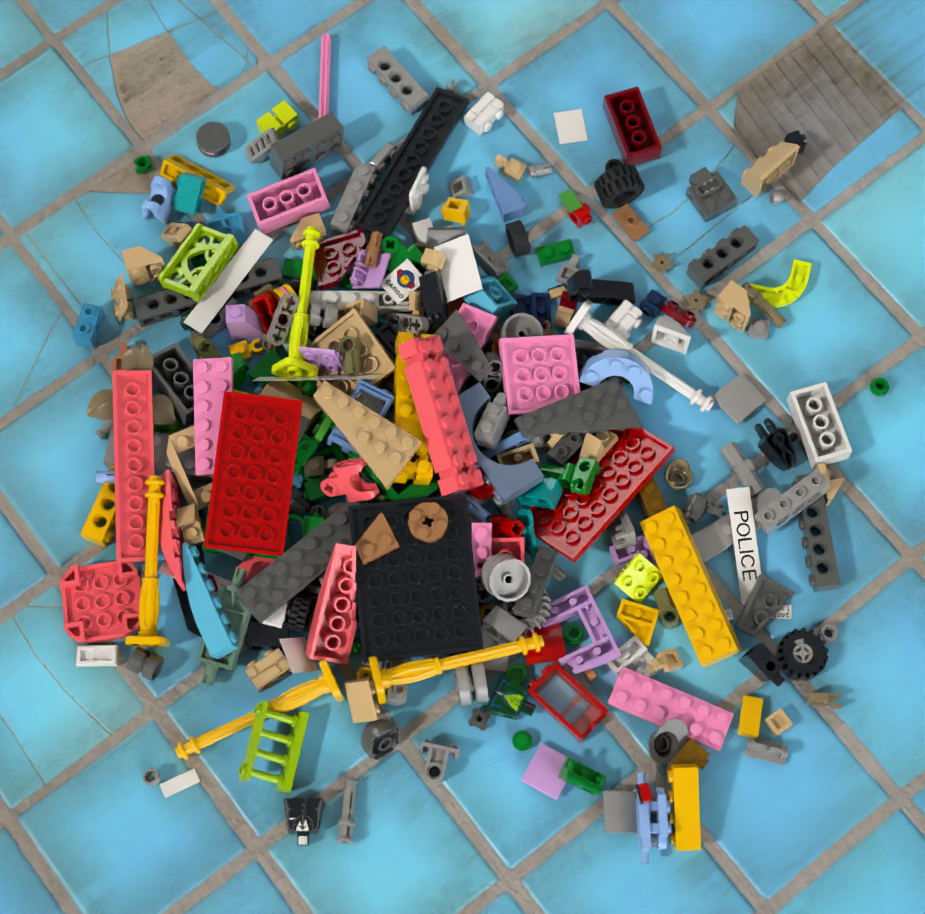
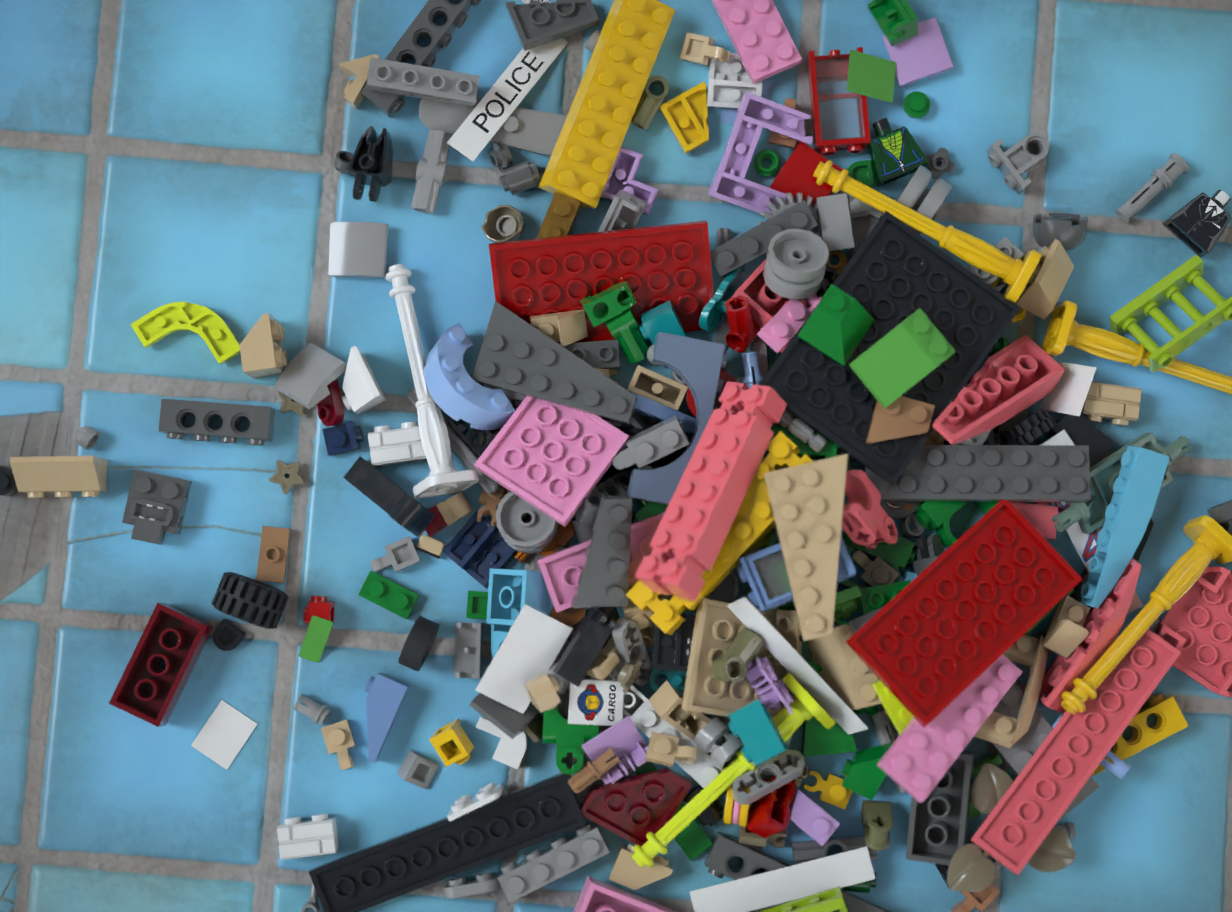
camera: 140 degrees left, 15 degrees up
(307, 327) = (757, 732): none -> teal brick
(347, 288) = (664, 750): none -> tan plate
(398, 307) = (629, 675): none -> dark tan plate
(403, 567) = (902, 358): none -> bright green slope
(421, 493) = (802, 431): none -> light grey axle
(431, 511) = (841, 381): medium nougat plate -> none
(453, 559) = (836, 325): none -> green slope
(561, 728) = (871, 76): none -> bright green sticker
(638, 578) = (652, 154): neon yellow hinge -> none
(699, 314) = (309, 374): none -> light grey slope
(758, 328) = (258, 305): light grey plate -> none
(766, 308) = (232, 333): dark tan pin -> none
(819, 425) = (314, 117): white brick -> none
(881, 382) = (197, 123): green plate -> none

